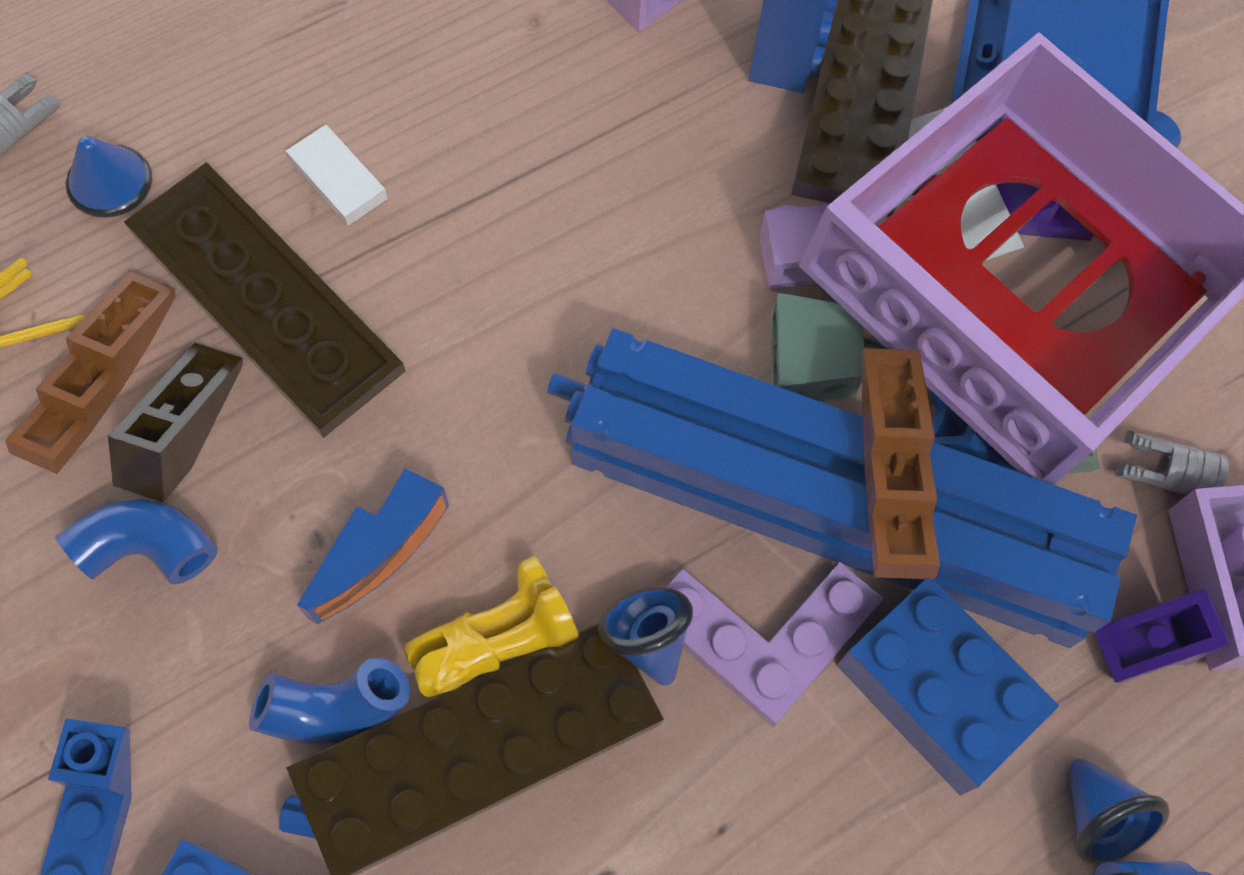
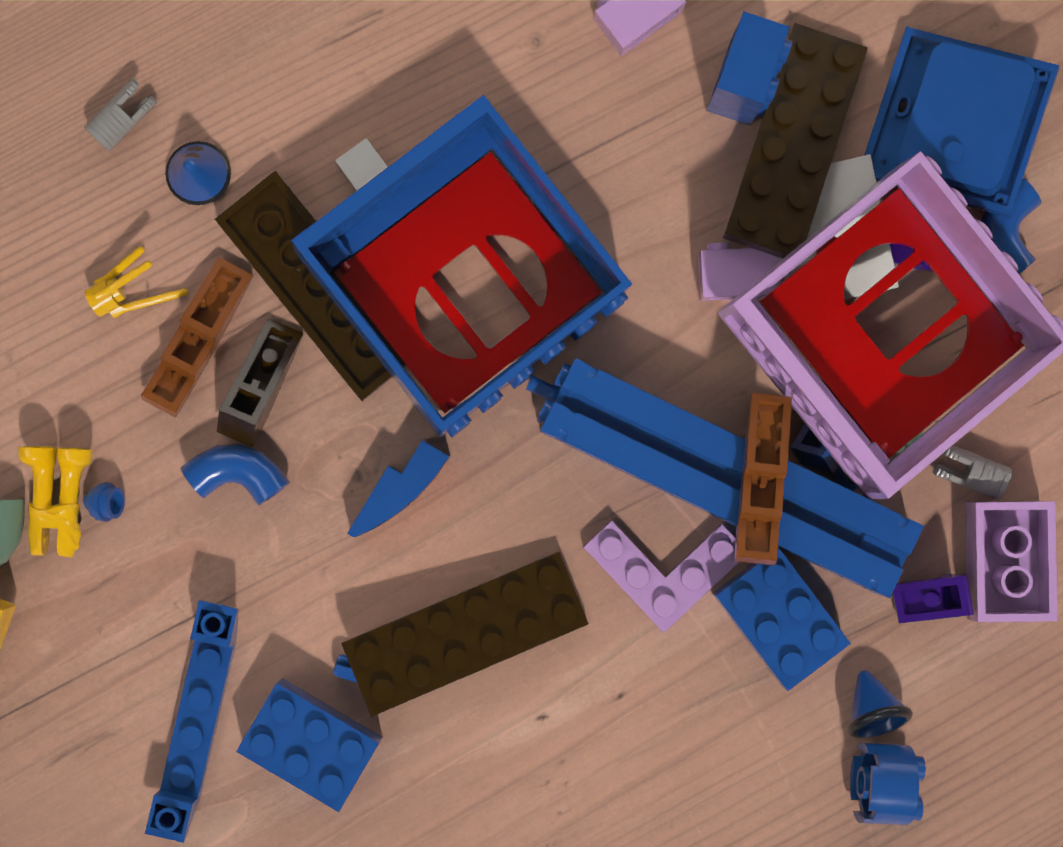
camera: 10 degrees right, 20 degrees up
(329, 711) = (367, 601): blue cylinder -> none
(406, 177) = (461, 215): none -> door
(478, 642) = (451, 571): yellow piece -> none
(649, 630) = (582, 565): blue hat -> none
(816, 348) = (723, 364): sand green torso -> none

